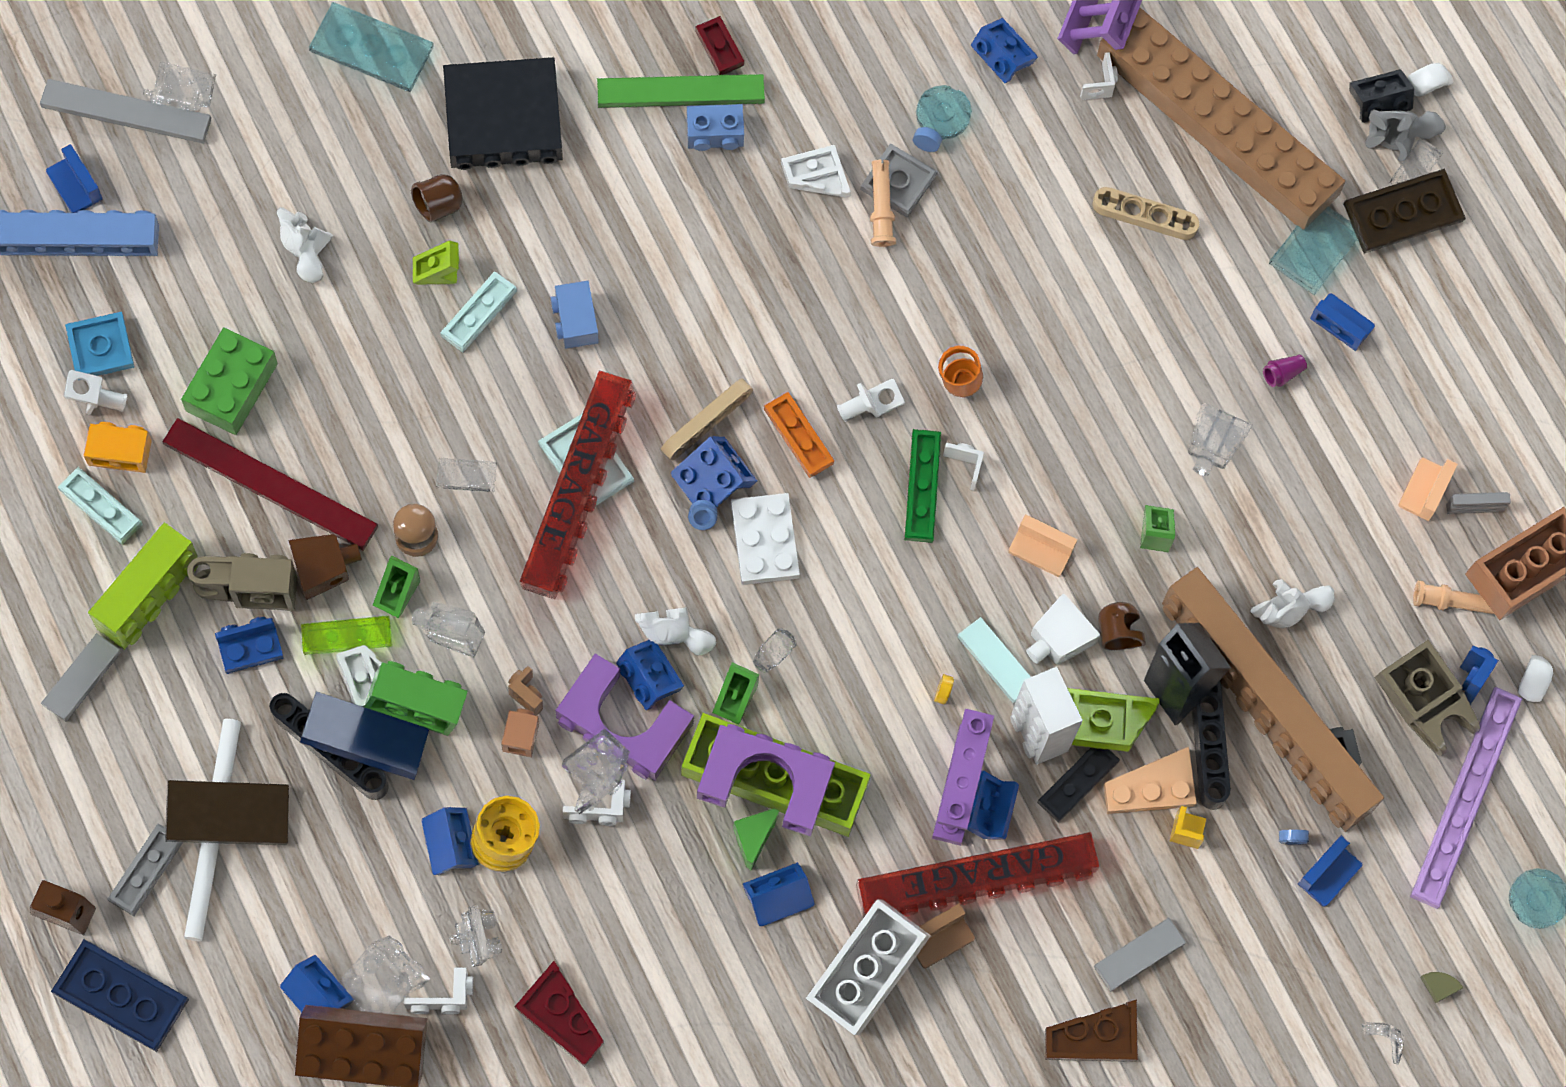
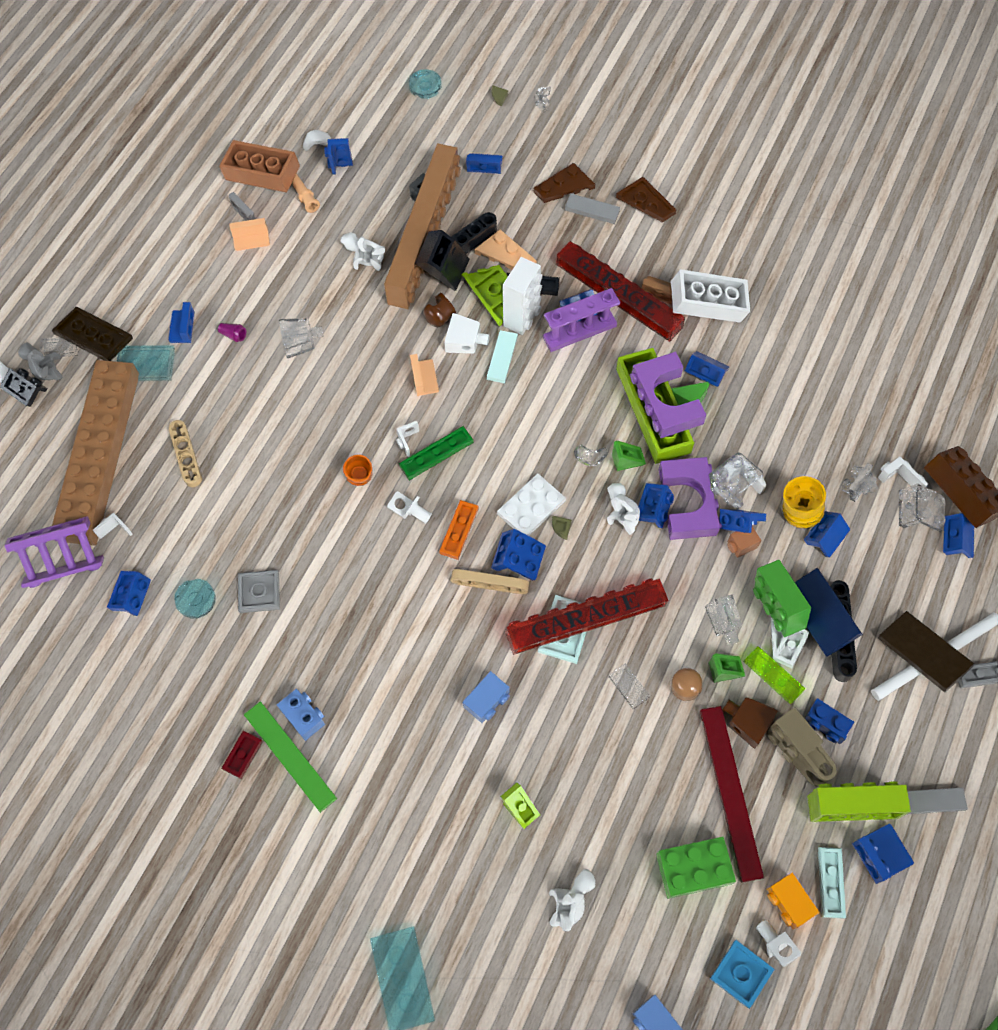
camera: 120 degrees left, 5 degrees down
(78, 573) = (883, 853): none -> blue bracket
(441, 195) = (474, 839): reddish brown helmet -> none
(478, 311) = (526, 760): light aqua tile -> none
(502, 113) = (387, 849): black panel -> none
(528, 696) = (721, 557): medium nougat bracket -> none
(546, 742) = (739, 519): none -> blue bracket
(559, 1015) = (857, 417): dark red wing -> none
(702, 514) = (546, 542): medium blue tile -> none
(711, 552) = (561, 526): none -> olive tile
(816, 172) = (287, 636): white wing -> none
(882, 216) = (290, 579): light nougat pin -> none
(927, 139) = (221, 591): medium blue tile -> none
(944, 689) = (539, 366): yellow tile -> none
(1158, 529) = (370, 330): bright green slope -> none
(1187, 829) = (517, 225): yellow panel -> none
(1211, 953) = (564, 182): none -> reddish brown wing
(1293, 837) = (481, 182): medium blue tile -> none
(1435, 701) = (363, 172): dark tan brick -> none
(1465, 798) = (407, 133): lavender tile -> none

